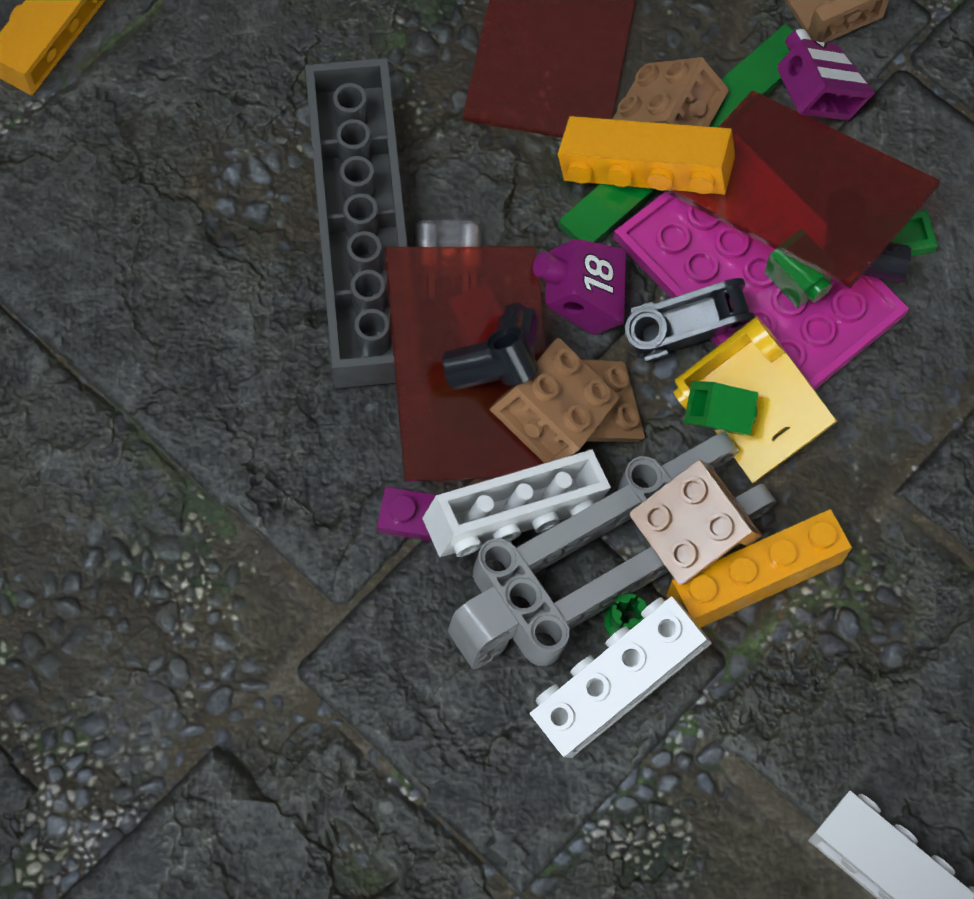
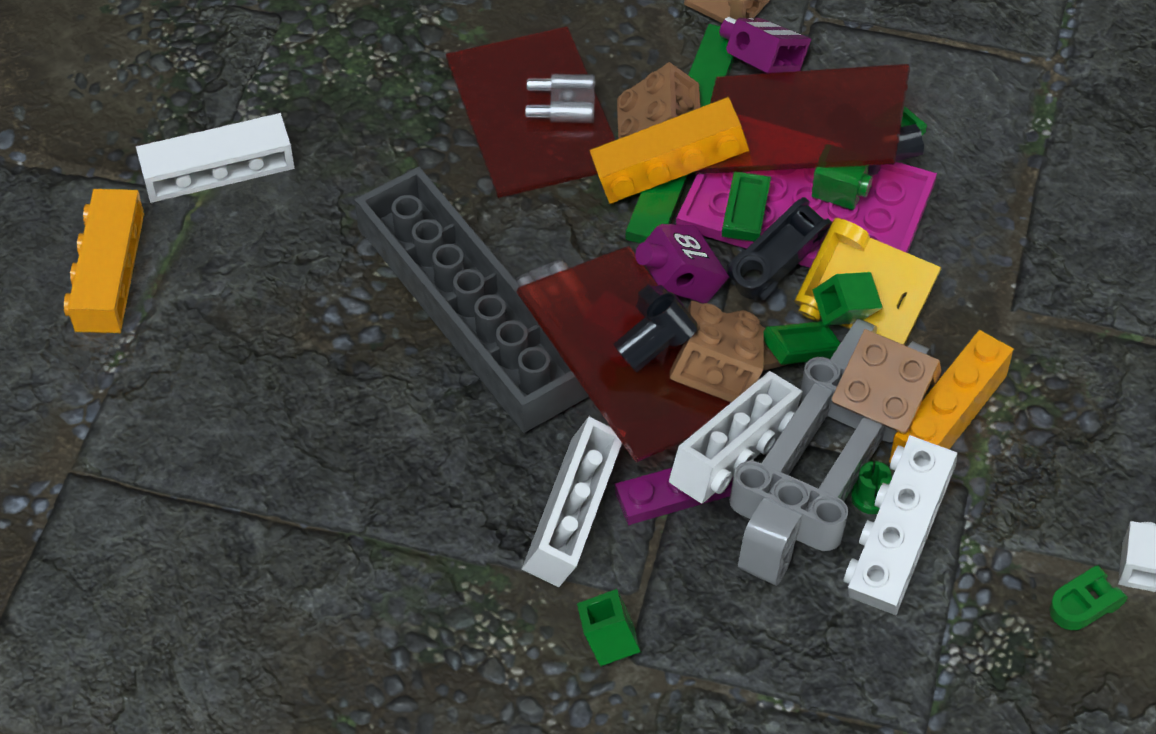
camera: 25 degrees left, 15 degrees down
(283, 634) = (608, 627): none -> green brick
(328, 489) = (573, 503): none -> white brick
(591, 46) = (570, 98): none -> clear piece
(651, 429) = (800, 342): none -> green tile
(689, 253) = (746, 206): none -> green tile
(744, 844) = (1076, 608): none -> green plate

